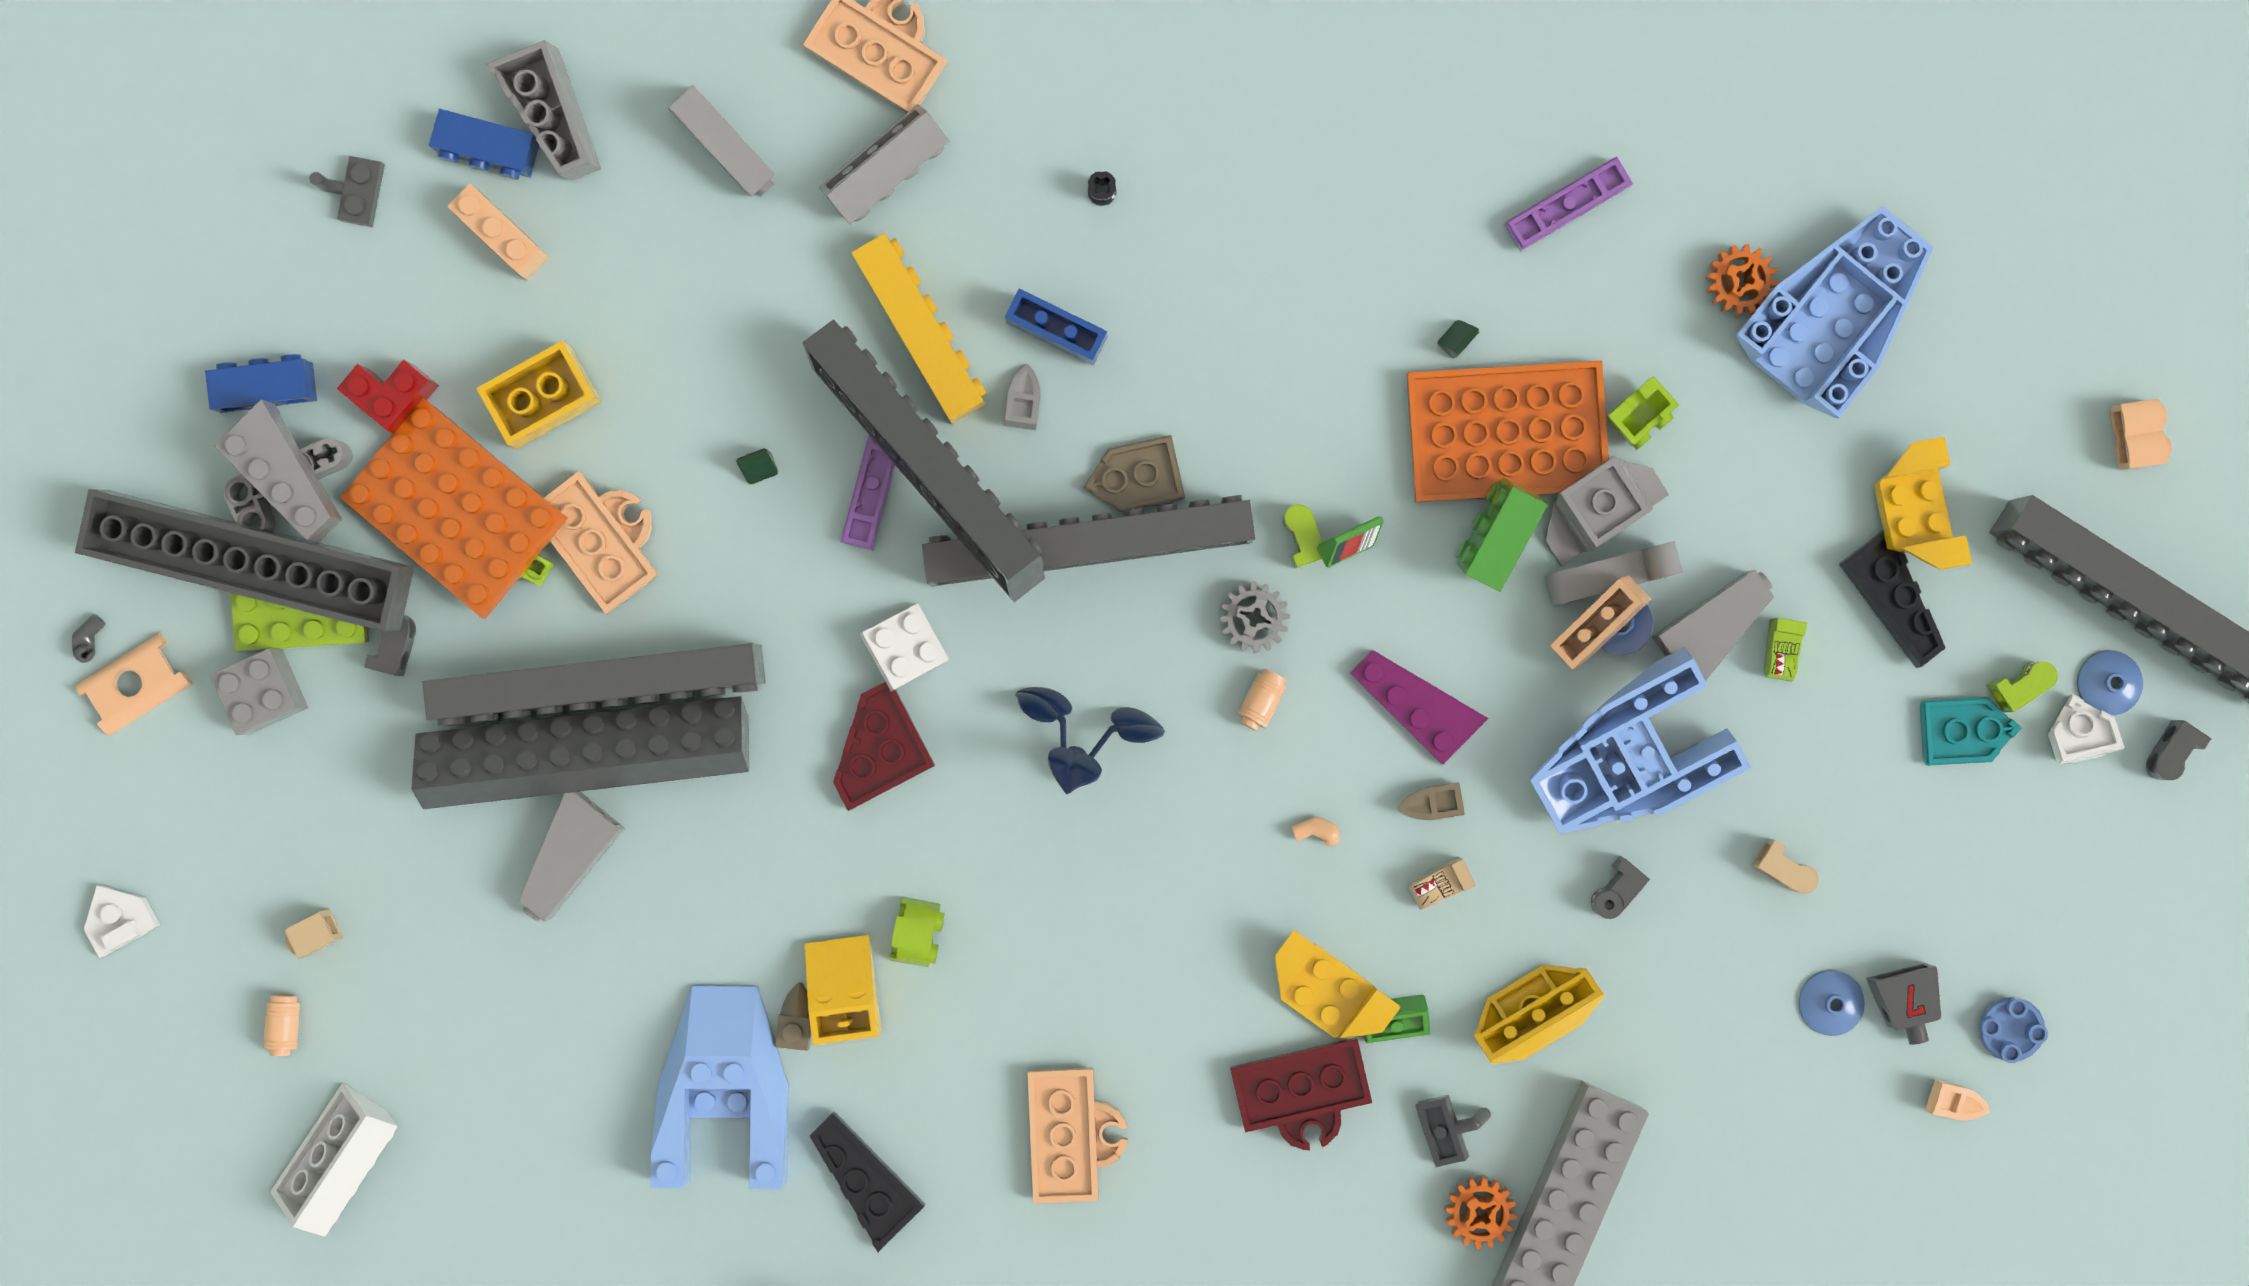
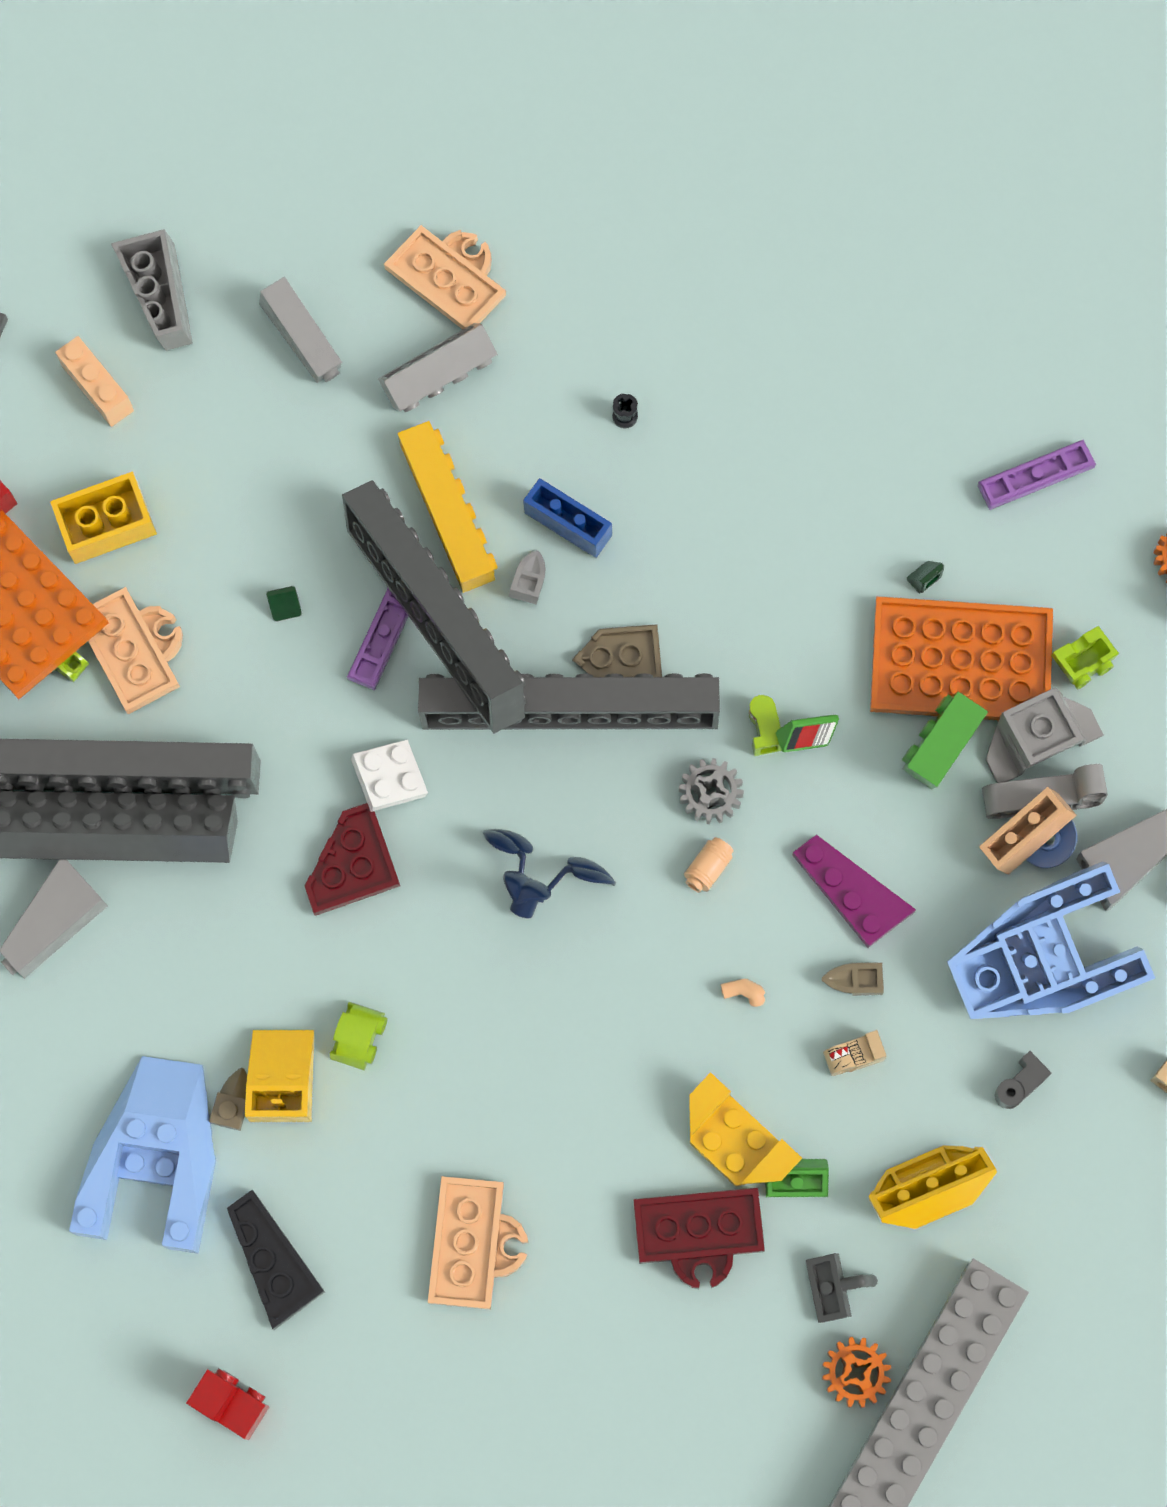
camera: 10 degrees right, 15 degrees down
(484, 144) = (96, 310): blue brick -> none

